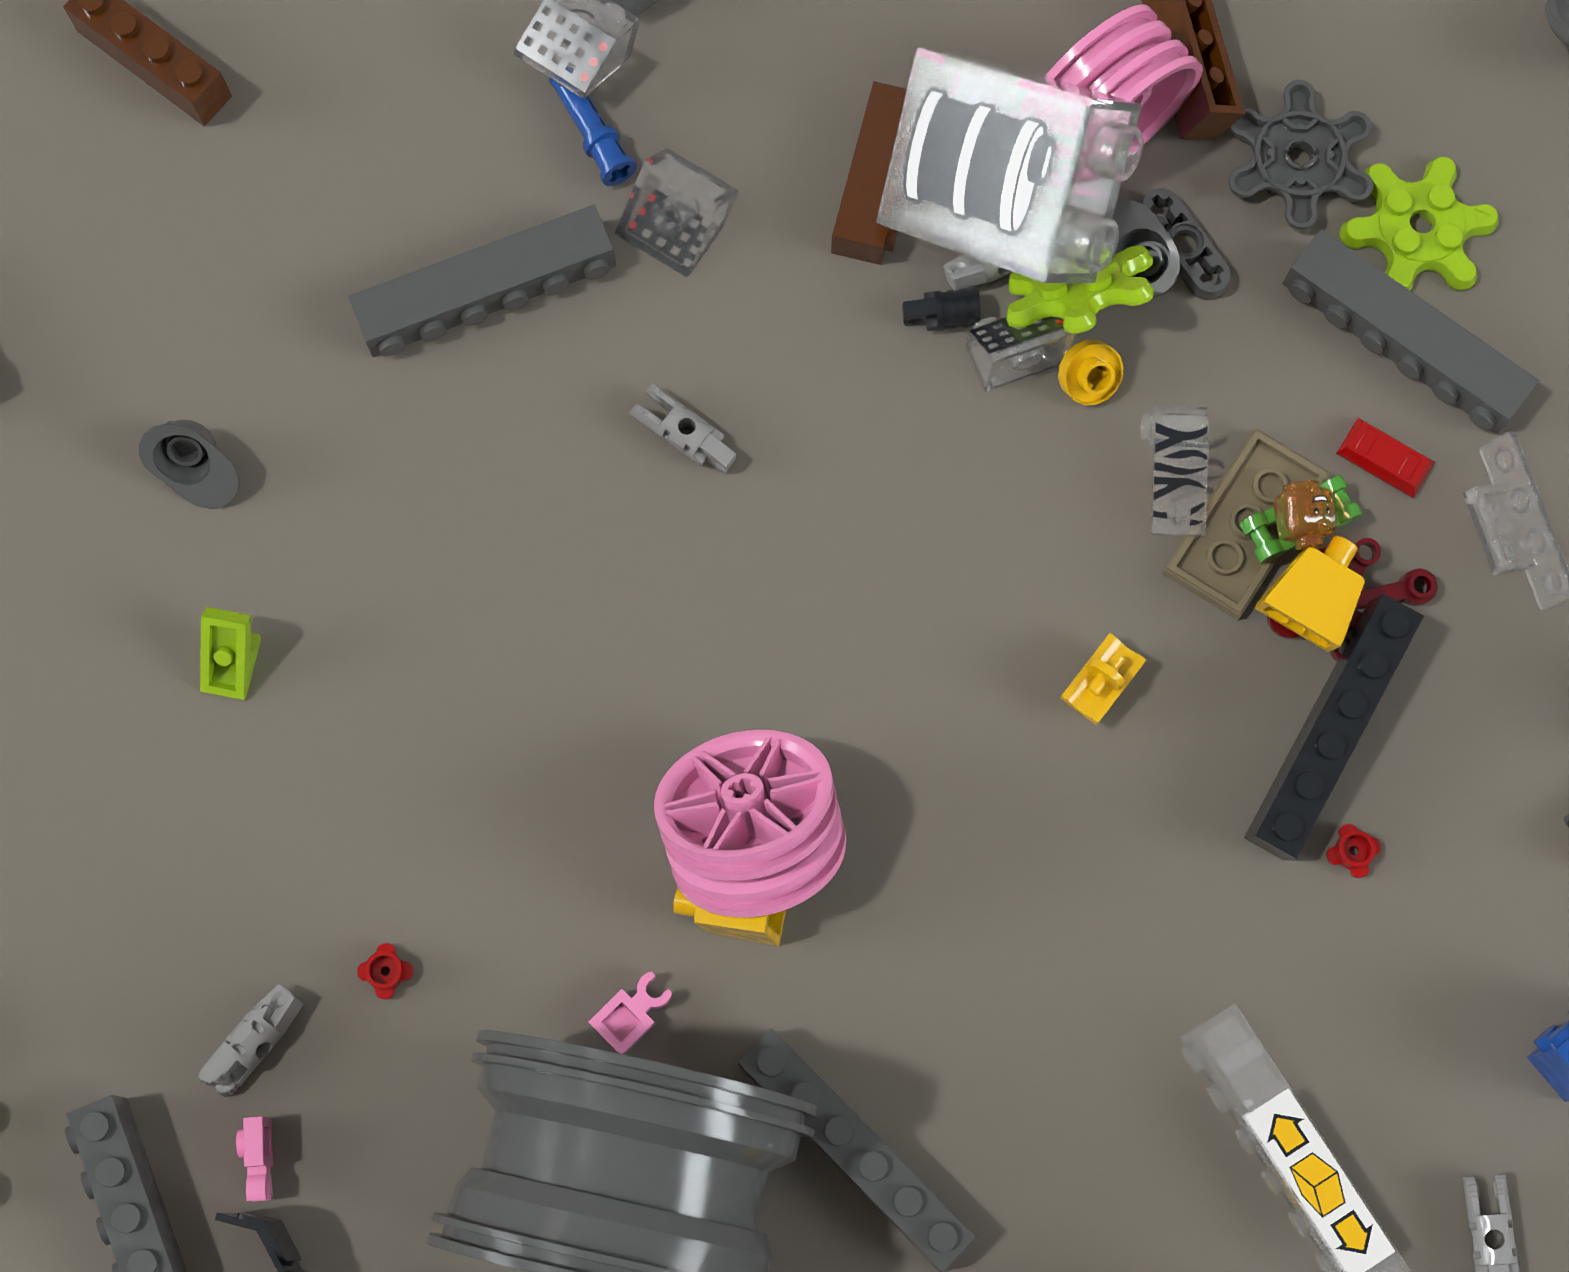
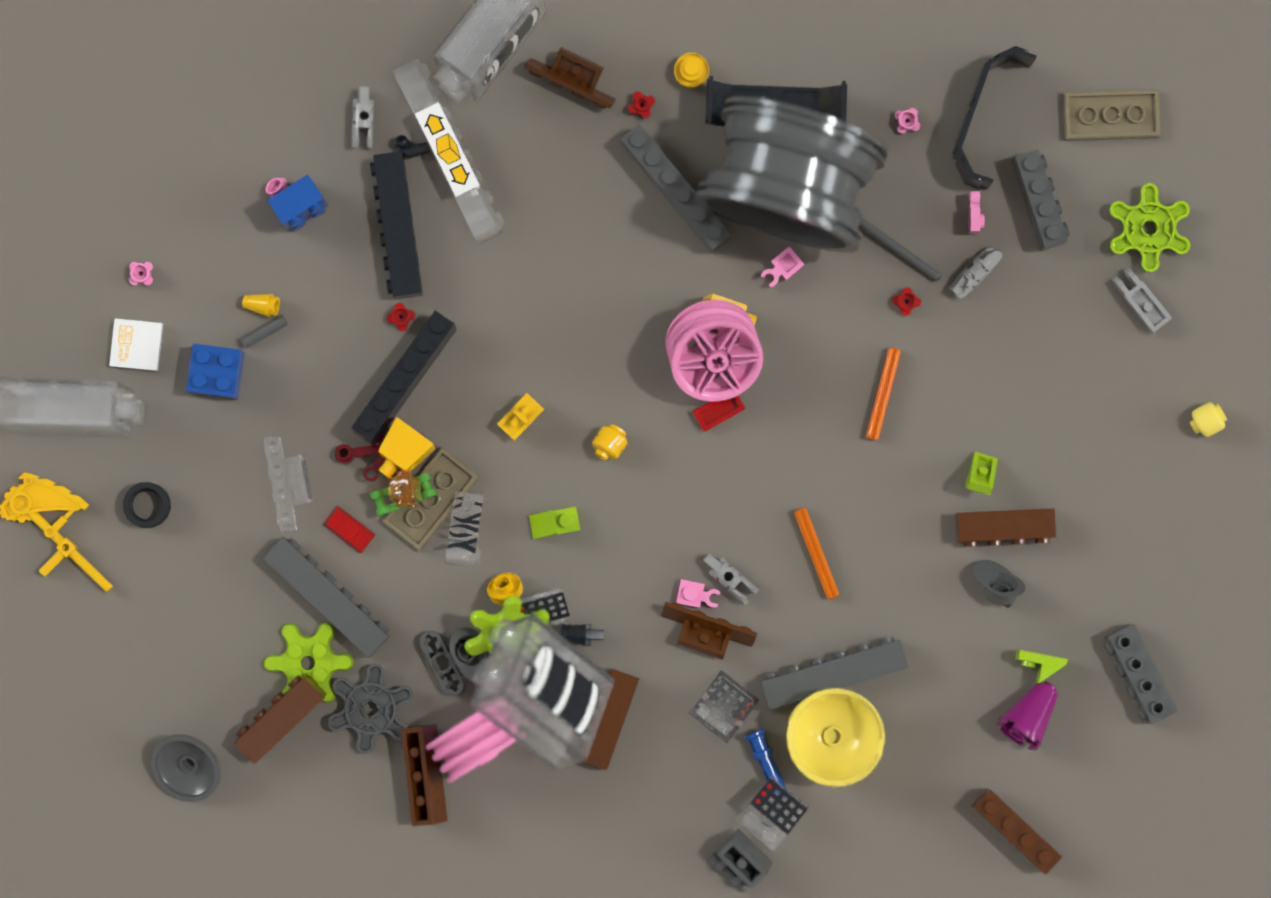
camera: 175 degrees left, 10 degrees up
(100, 331) = (1047, 664): none -> lime slope
(124, 239) = (1030, 716): none -> magenta cone
(179, 564) = (1005, 525): none -> reddish brown brick
(409, 1075) = (896, 247): none -> dark grey piece
(421, 790) = (883, 393): none -> orange axle
(471, 154) = (835, 737): none -> light yellow rock
(529, 489) = (816, 553): none -> orange axle
(719, 327) = (705, 632): none -> reddish brown bracket
(742, 714) = (717, 412): none -> red tile
(749, 399) = (692, 594): none -> bright pink plate
(930, 649) = (609, 442): none -> yellow head
(1013, 501) = (554, 522): none -> lime slope
(1390, 1185) = (410, 149): none -> black arm
(1391, 1027) = (397, 225): none -> black brick
(1457, 120) = (280, 718): none -> reddish brown brick

